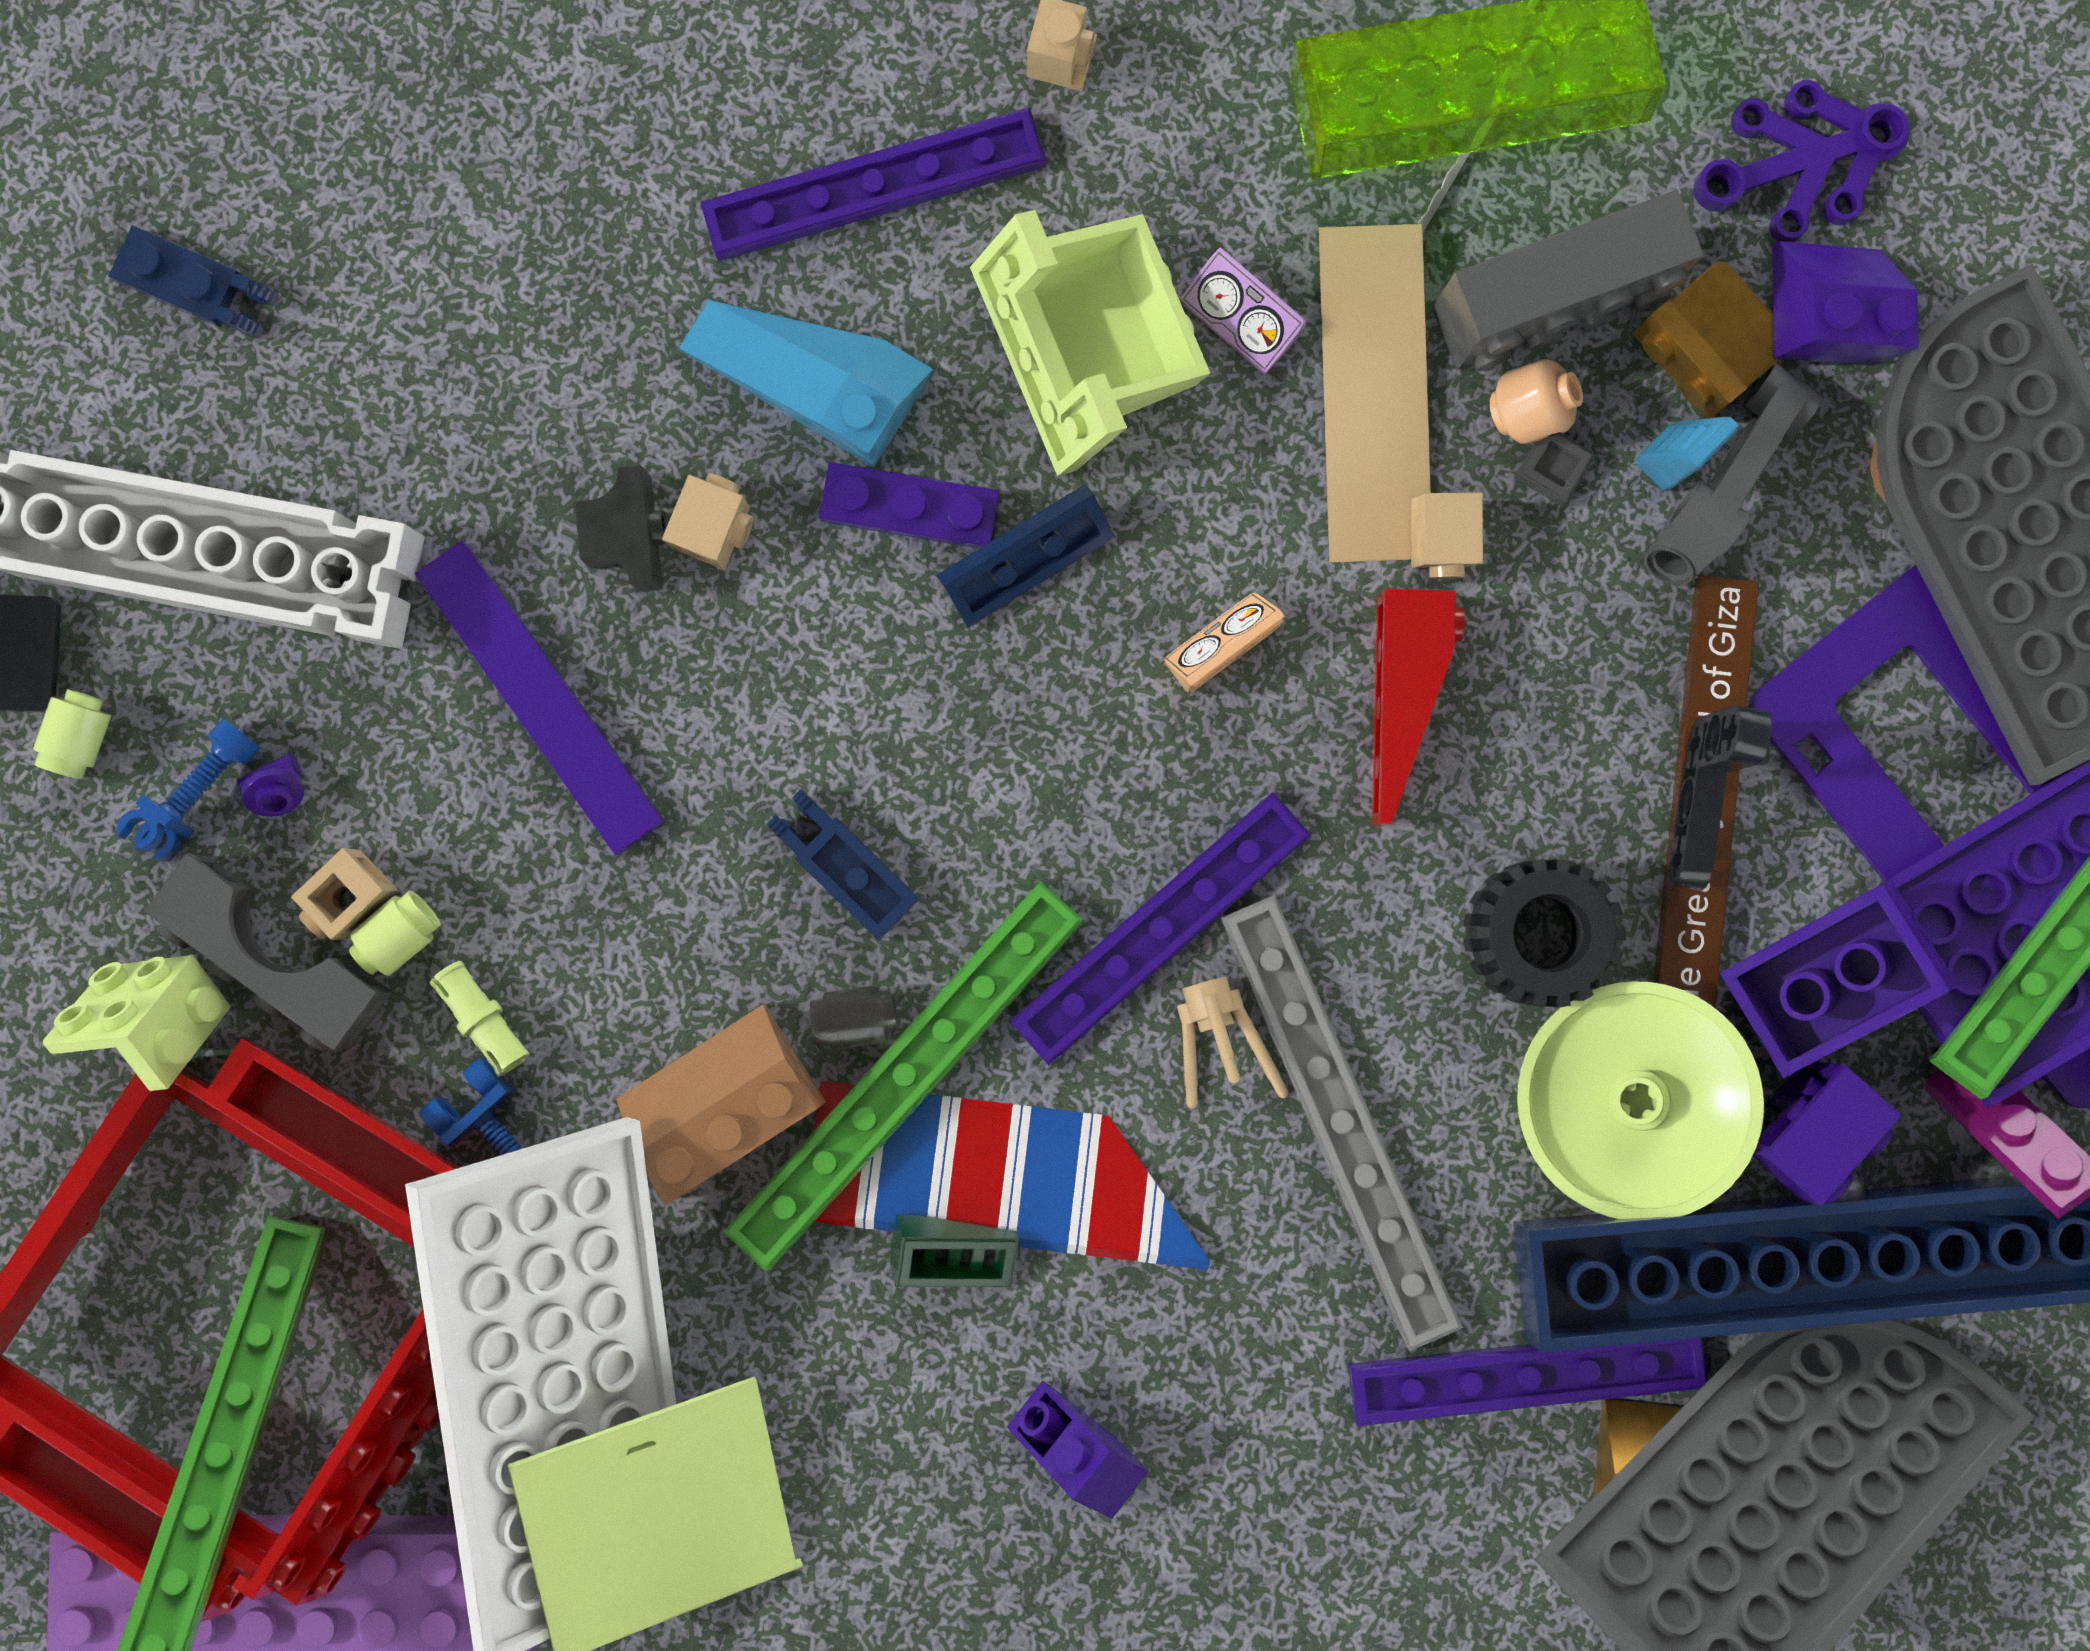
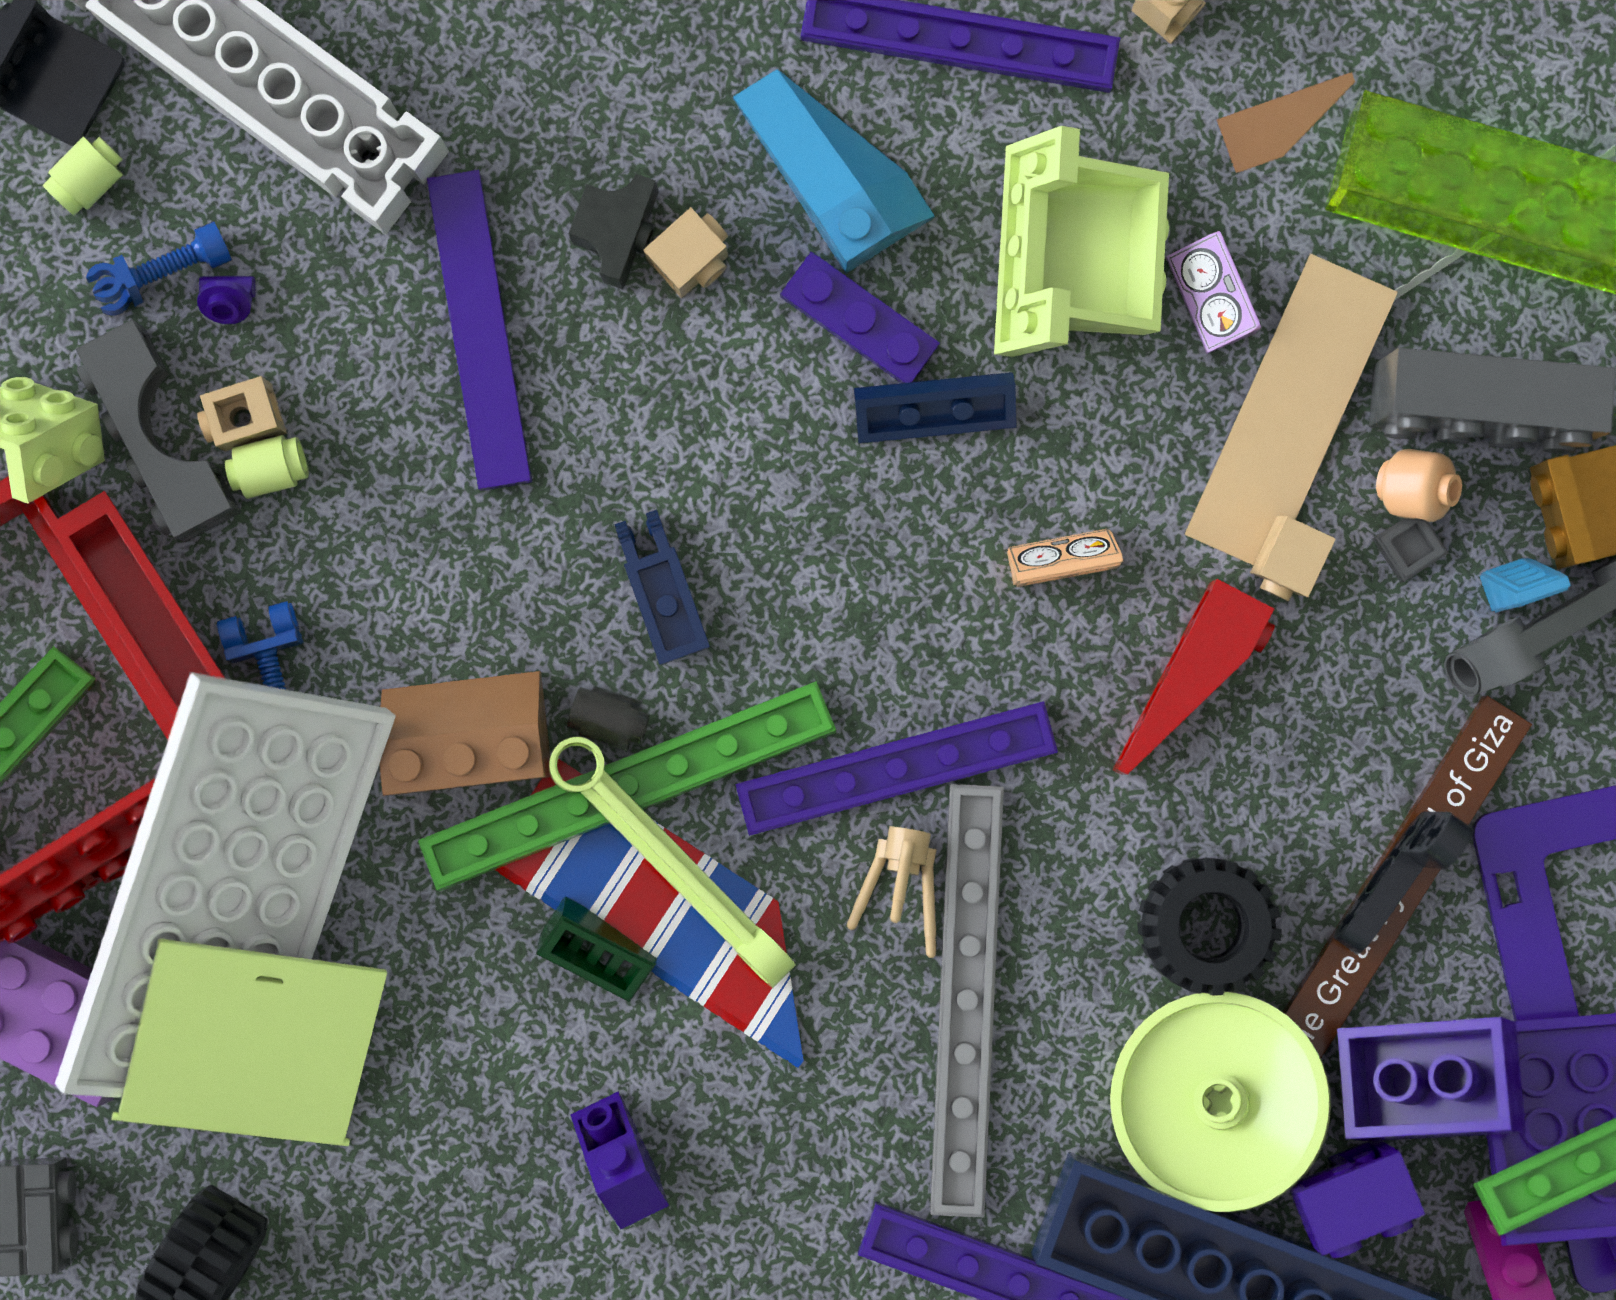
camera: 25 degrees right, 0 degrees up
(479, 1018) = (303, 569): yellowish green pin -> none
(992, 1132) = (747, 939): none -> yellowish green piece
(1224, 120) = (1277, 125): none -> medium nougat sticker

